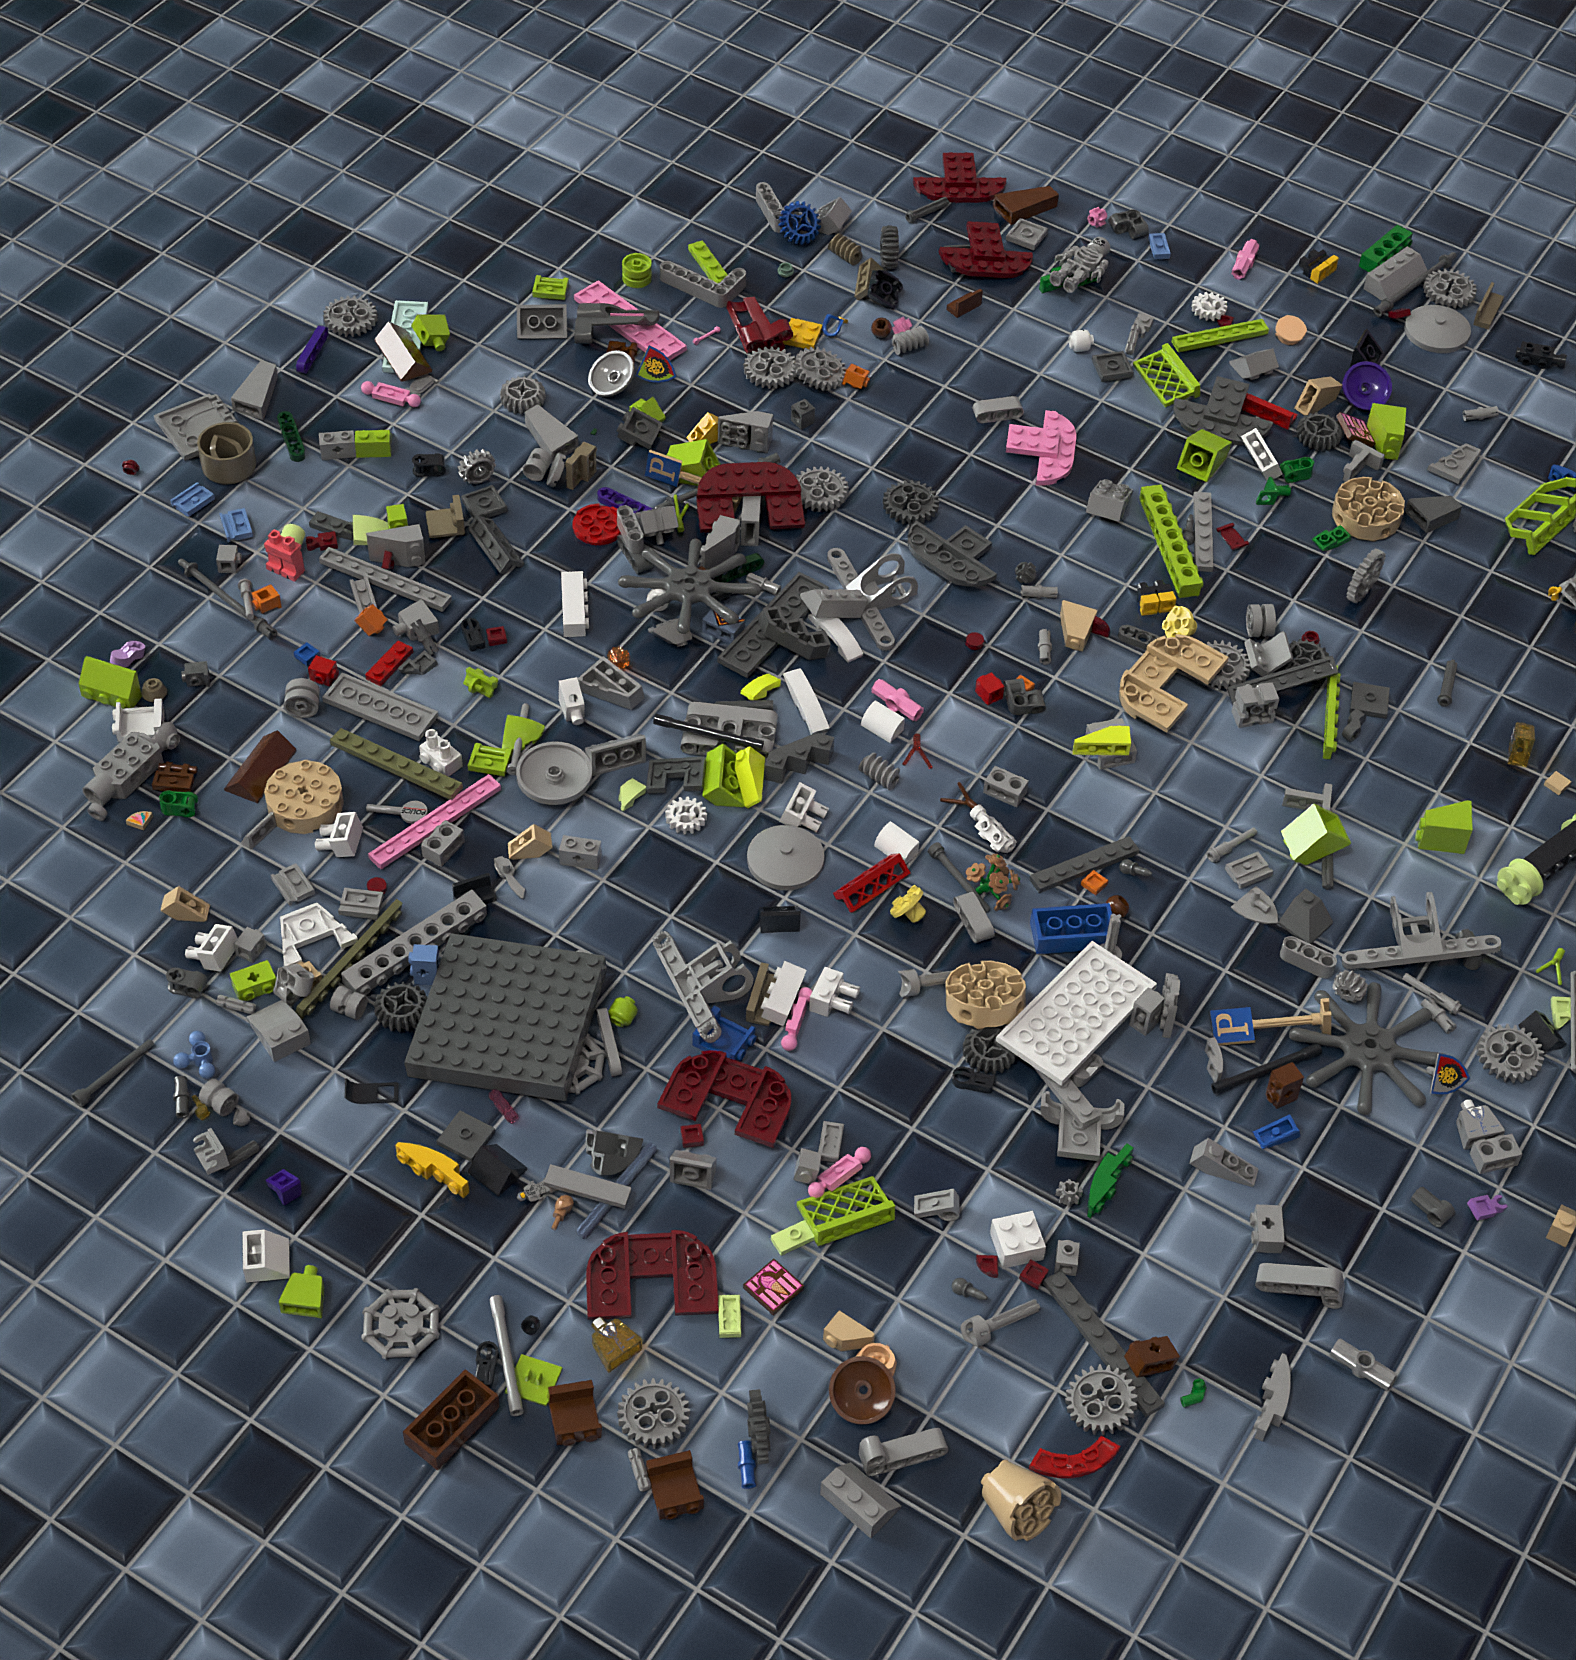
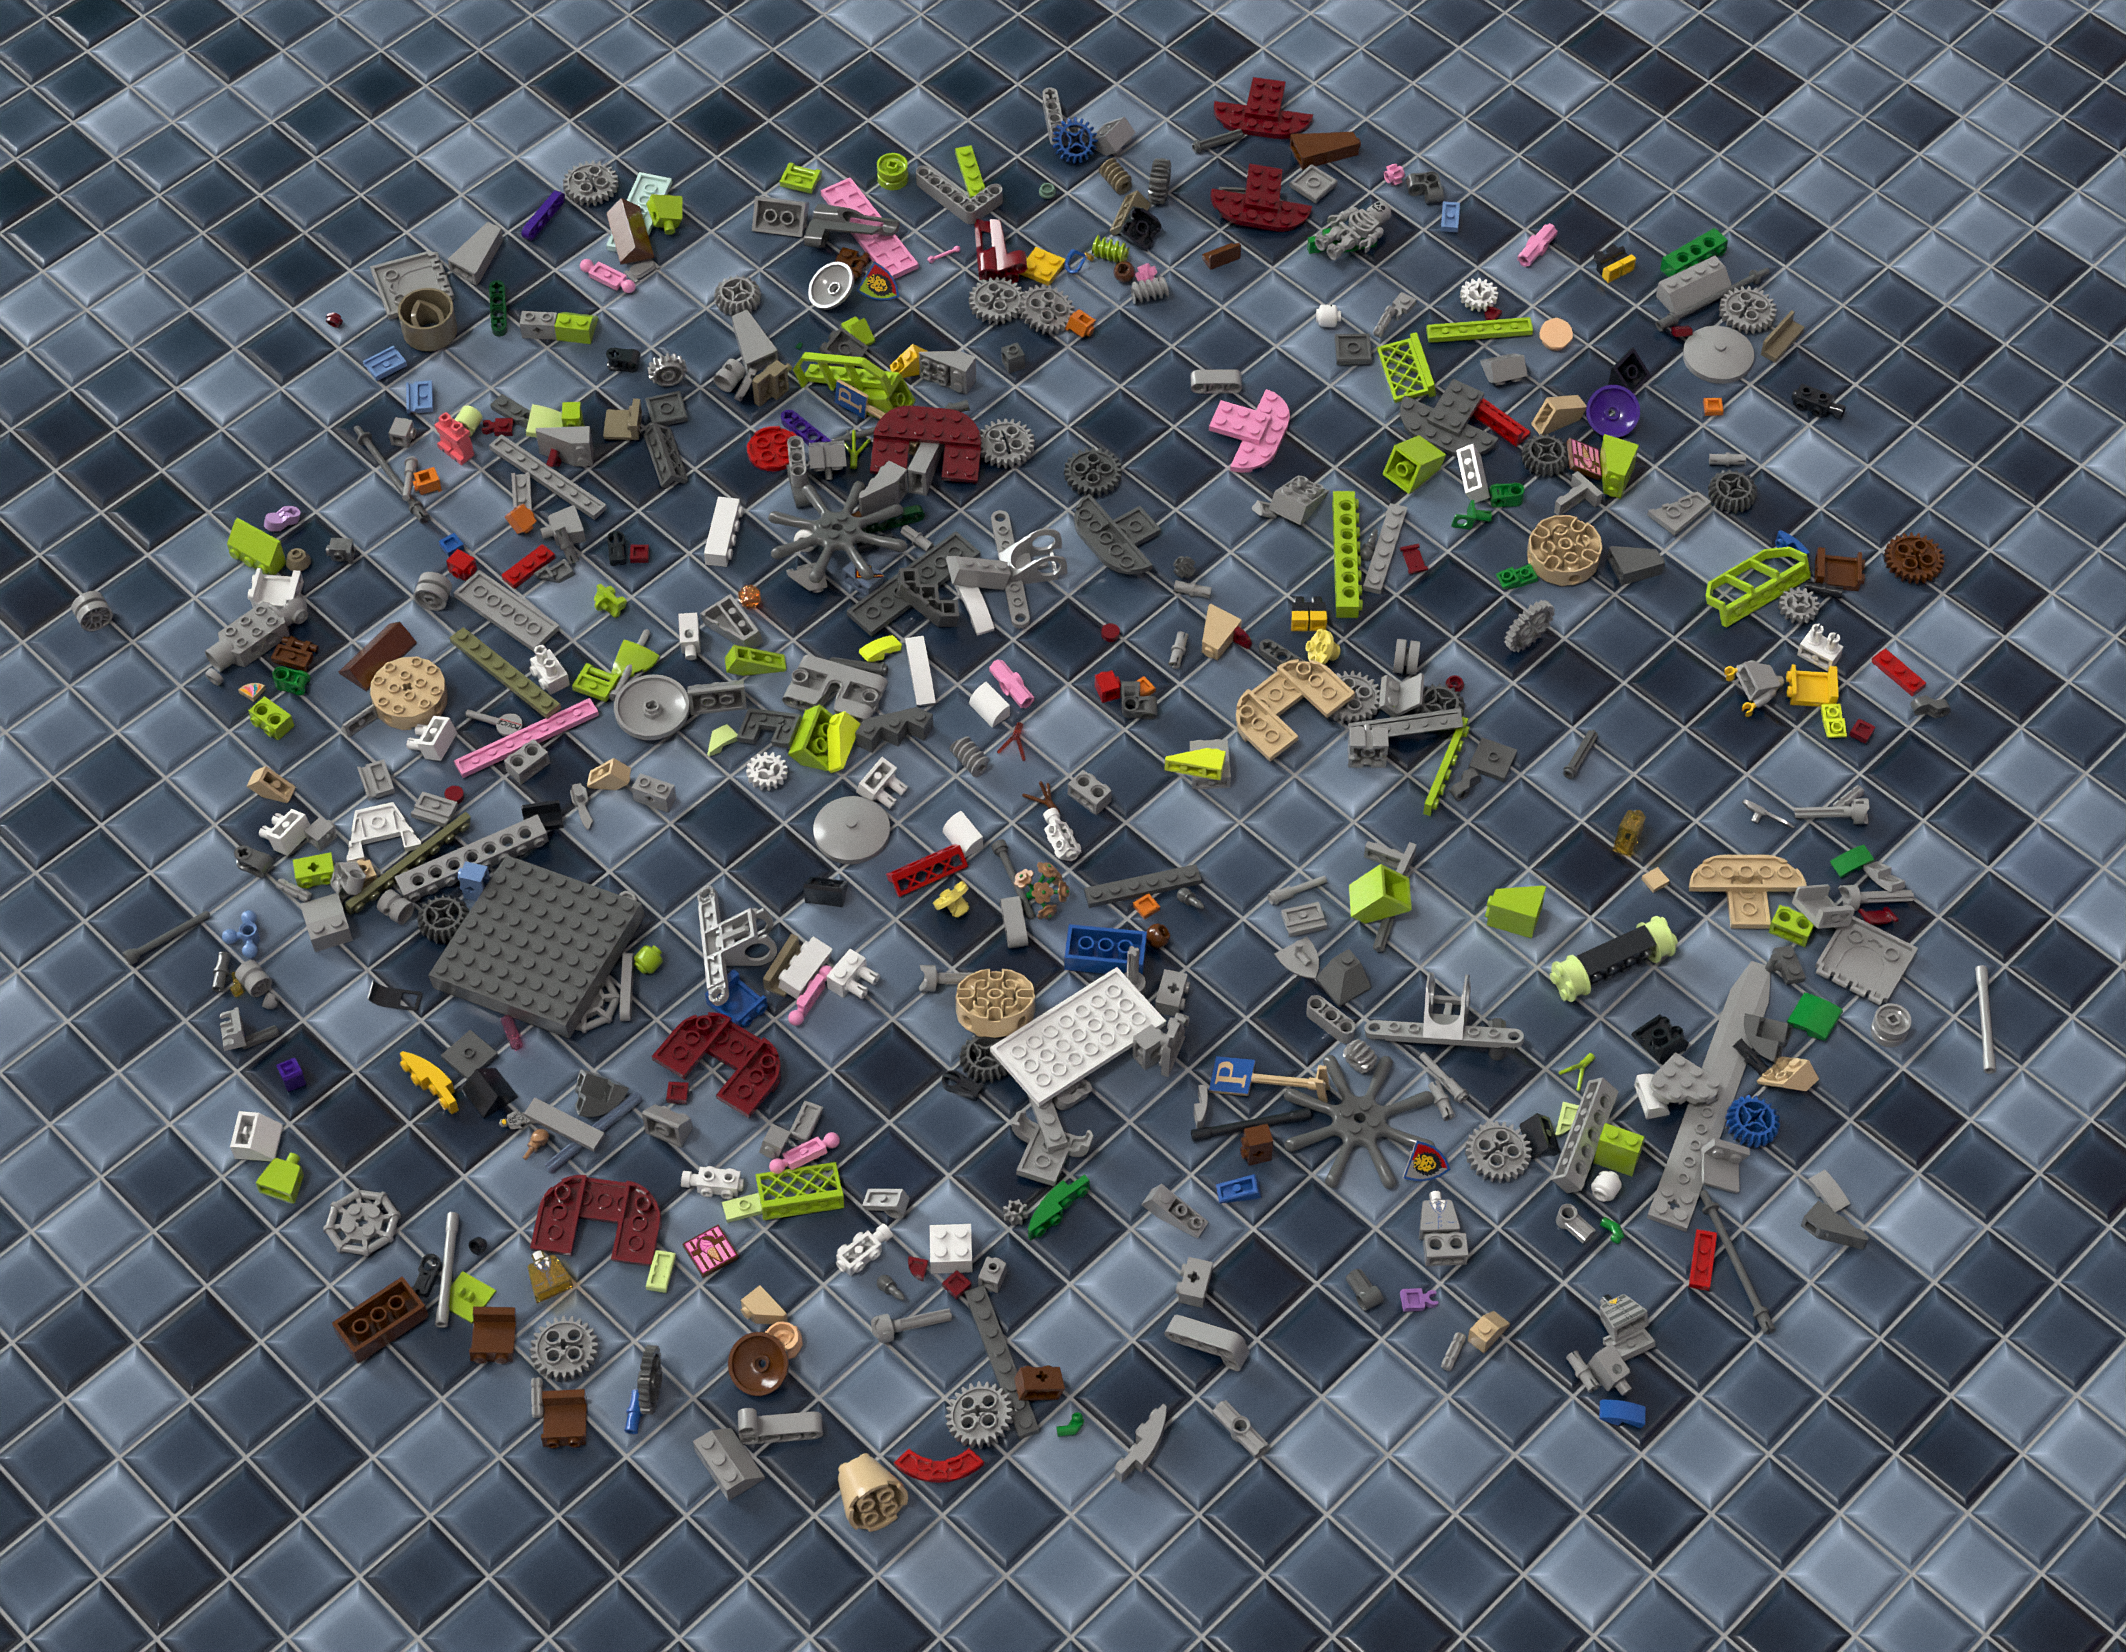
camera: 15 degrees right, 5 degrees up
(167, 842) = (271, 718): none -> lime brick
(637, 717) = (752, 661): none -> lime slope
(669, 722) = (775, 673): black piece -> none
(683, 446) = (869, 376): none -> lime plate
(757, 1217) = (714, 1181): none -> white brick
(861, 311) = (1111, 251): none -> lime piece
(922, 1266) = (855, 1251): none -> white brick
(1079, 512) = (1262, 509): none -> light grey slope
(1149, 956) = (1171, 983): none -> light grey brick
(1449, 372) = (1713, 406): none -> orange tile
(1496, 439) = (1732, 491): none -> dark grey gear
(1538, 1250) = (1453, 1351): none -> light grey axle

